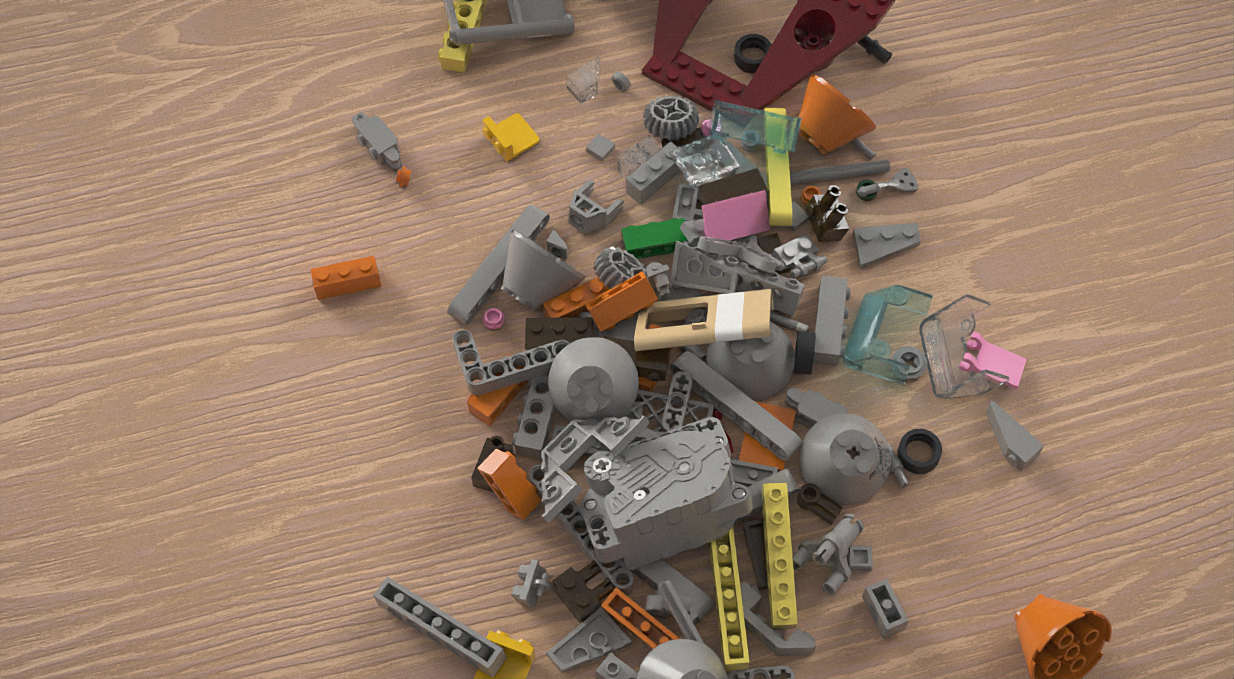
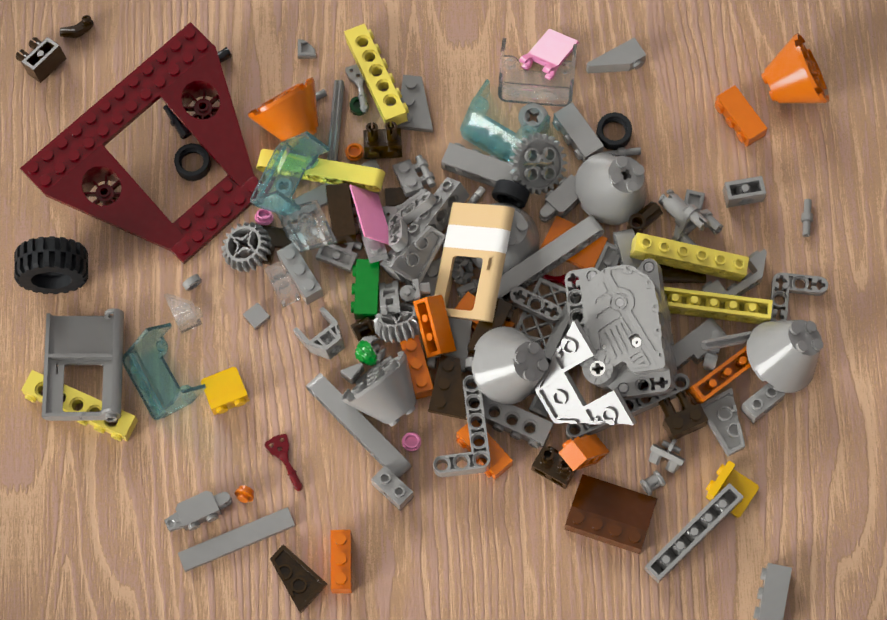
camera: 75 degrees left, 10 degrees up
(324, 243) = (297, 577): none -> dark brown wing
(356, 182) = (236, 539): none -> light grey tile
(433, 309) = (392, 488): none -> light grey brick
(450, 537) = (610, 514): none -> reddish brown slope
(454, 204) = (283, 456): none -> dark red piece
(496, 574) = (652, 482): none -> light grey bush
(515, 71) = (153, 377): none -> clear light blue windscreen
(583, 254) = (367, 352): none -> green piece
(606, 241) = (363, 328): none -> dark brown brick
(643, 255) = (389, 297): none -> light grey plate
(867, 363) = (538, 146): none -> light grey gear
(903, 193) = (355, 39): none -> light yellow brick
(904, 410) = (577, 132): none -> light grey brick
(914, 127) = (305, 50): none -> light grey tile
(984, 588) = (740, 116): none -> orange brick

